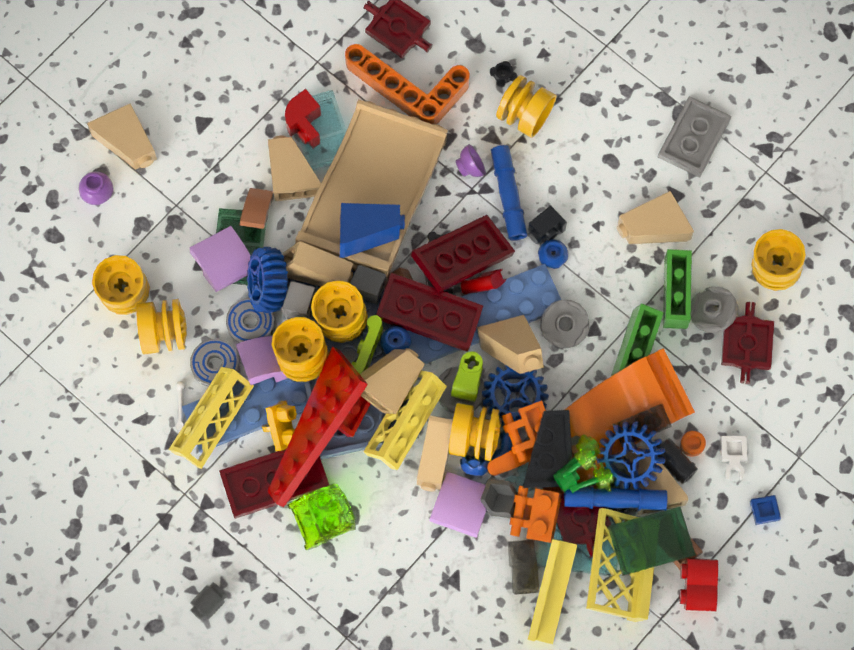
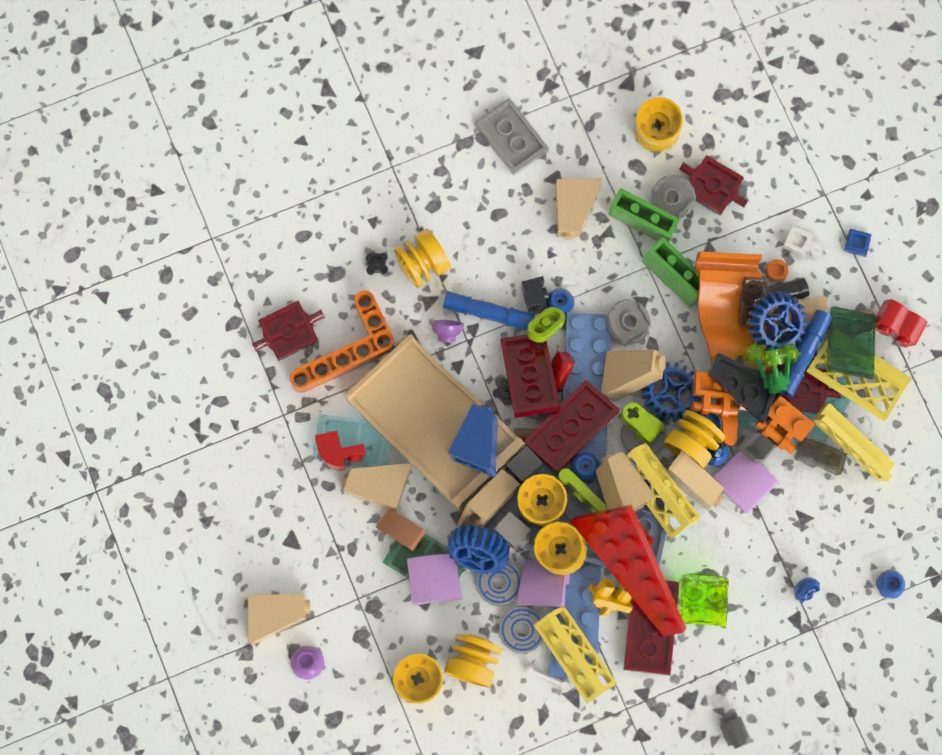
camera: 65 degrees left, 5 degrees up
(381, 610) = (806, 588): none -> blue plate
(519, 246) = (541, 326): none -> lime plate

